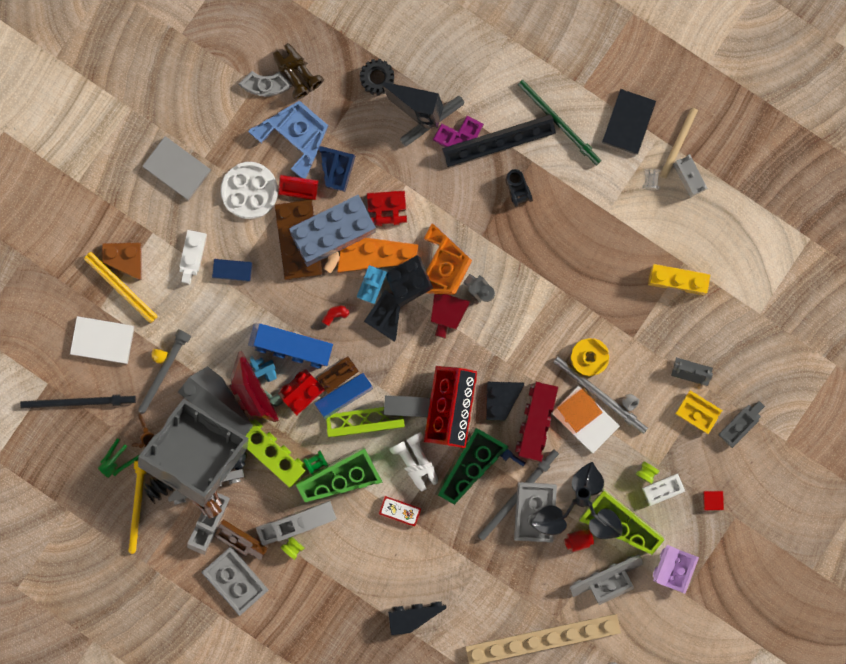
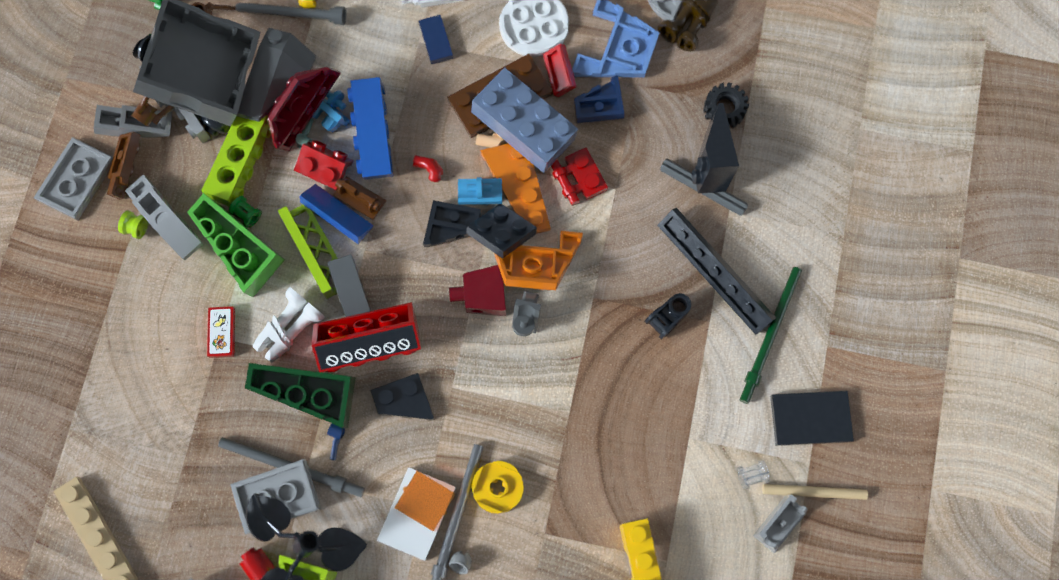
camera: 70 degrees right, 10 degrees down
(136, 508) = (108, 47): yellow piece -> none
(407, 620) = (86, 390): black slope -> none
(447, 136) = (714, 232): magenta tile -> none
(537, 421) = (387, 452): dark red wedge -> none

